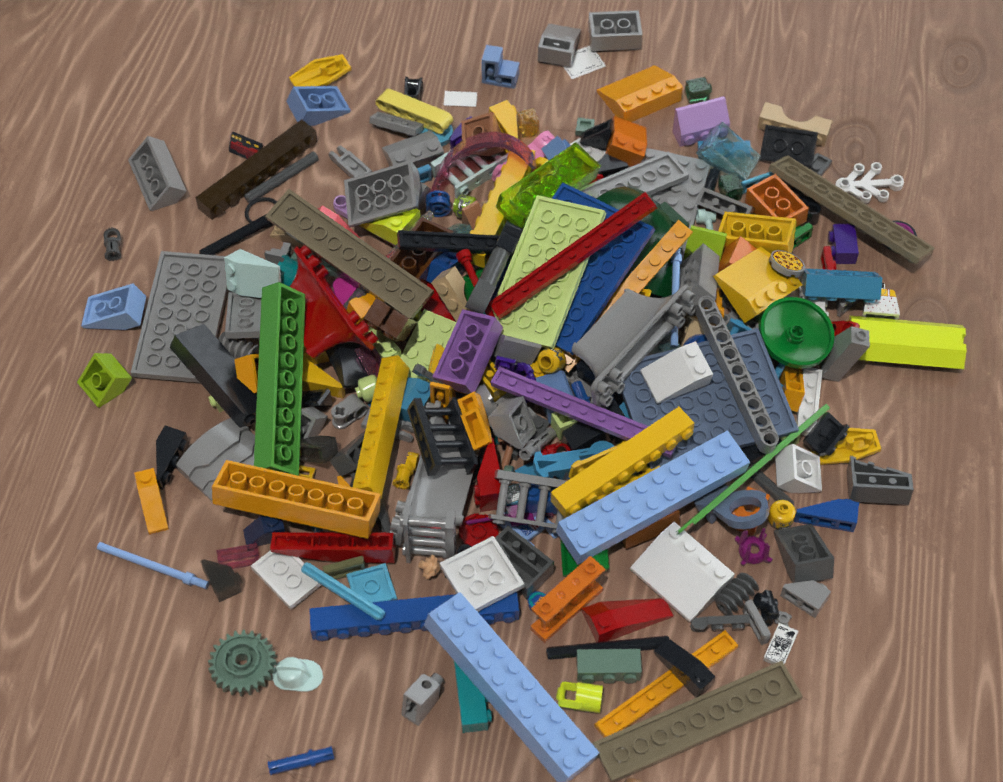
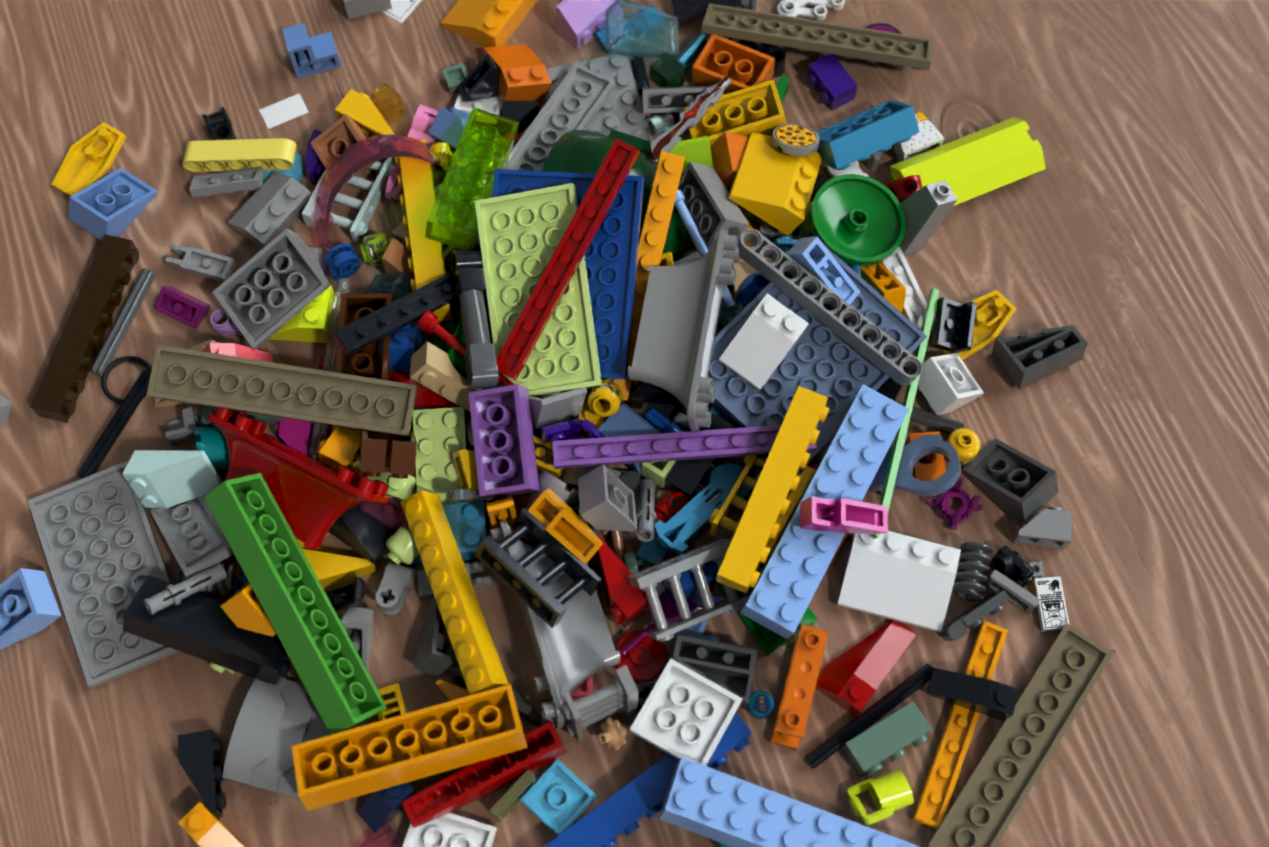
camera: 30 degrees left, 10 degrees up
(103, 378) = (57, 713): lime slope -> none
(197, 338) = (157, 603): none -> light grey pin
(243, 146) = (50, 305): slope -> none
(318, 449) = (389, 659): clear smoke slope -> none
(322, 185) = (181, 306): none -> magenta slope
(343, 591) = (534, 830): medium azure axle -> none
(405, 470) = (510, 628): yellow connector -> none
(425, 173) = (302, 228): dark azure tile -> none
(658, 500) = (843, 516): none -> dark pink slope
(724, 217) = (688, 118): none -> light grey sword
(747, 345) = (818, 261): none -> light blue slope
(827, 260) = (826, 111): red plate -> none
(834, 514) = (1019, 413): blue slope -> none

